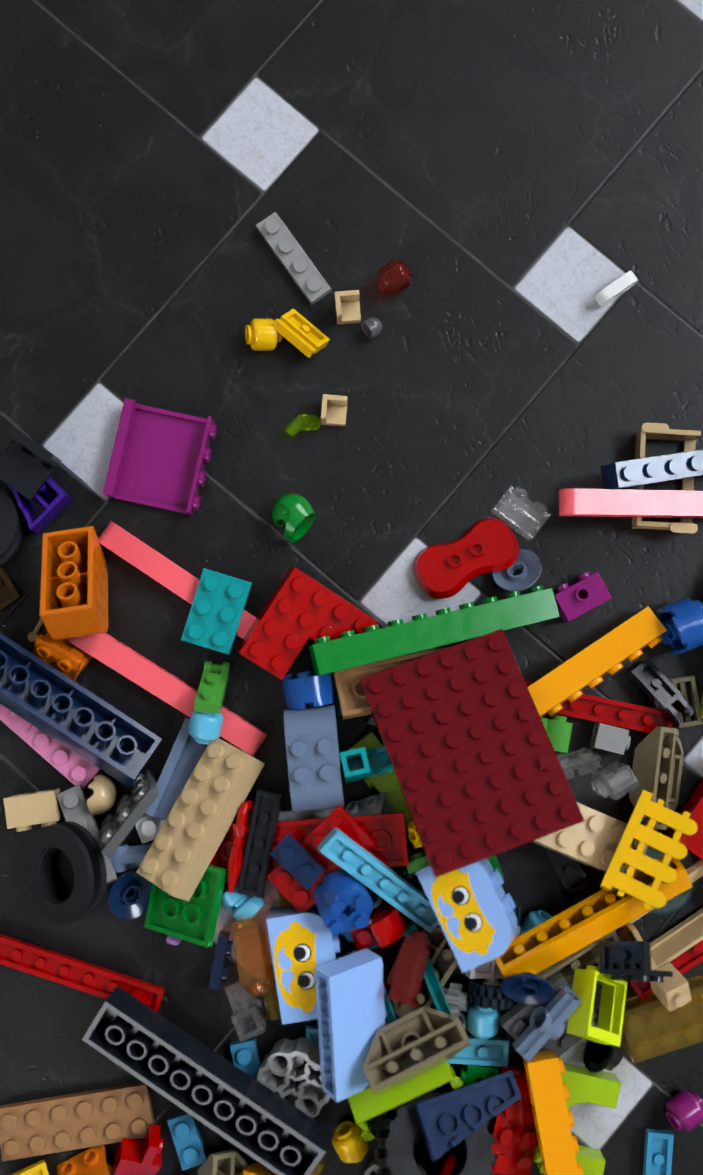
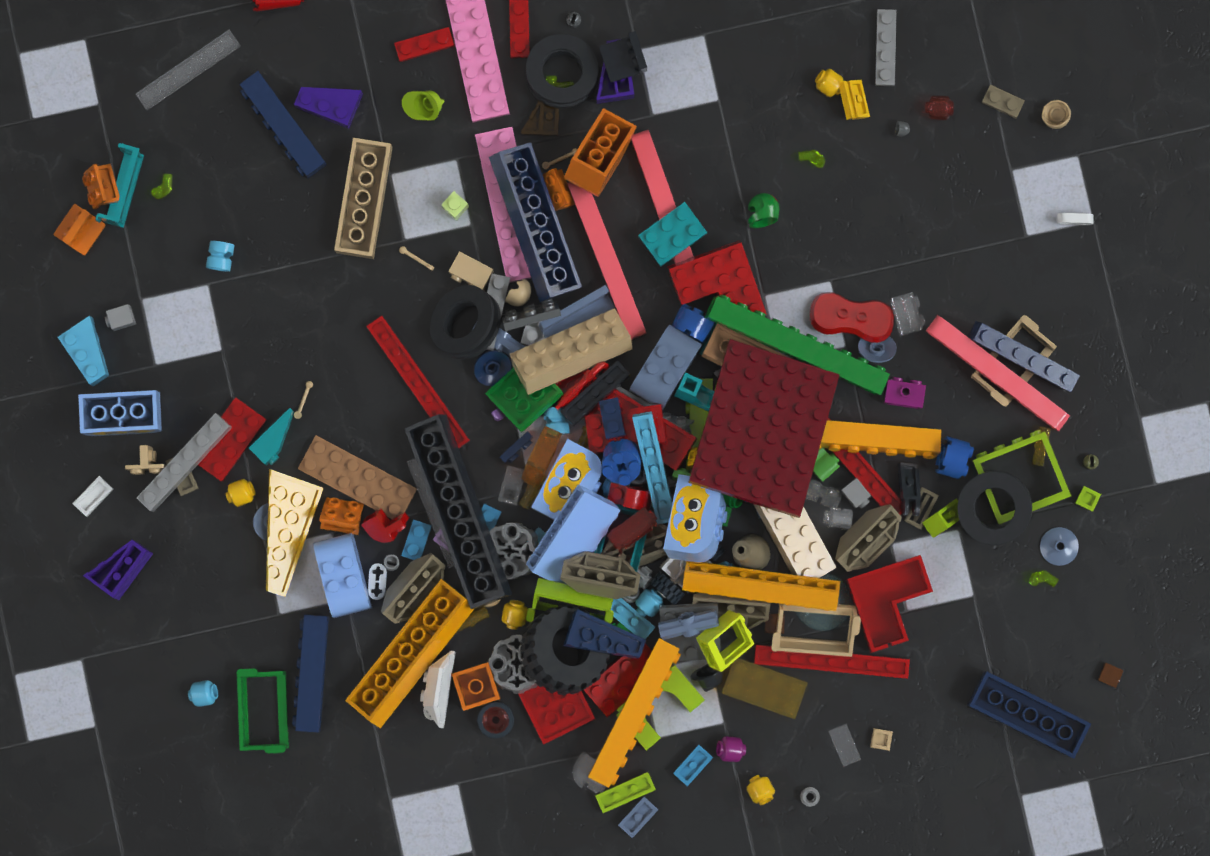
camera: 45 degrees right, 0 degrees up
(159, 458) = (707, 113): magenta panel -> none
(205, 726) = (615, 297): medium azure head -> none
(212, 687) = (636, 278): bright green plate -> none
(334, 410) = (838, 163): tan panel -> none
(347, 307) = (895, 105): tan panel -> none
(453, 225) = (1003, 101): none -> dark tan plate
(517, 197) = (1056, 114): none -> tan hair
(527, 988) = (692, 593): dark blue dish -> none
(548, 885) = (751, 552): none -> dark tan cone
(629, 961) = (762, 624): black bracket -> none
(643, 863) = (827, 551): yellow fence -> none
(673, 991) = (778, 663): tan brick -> none

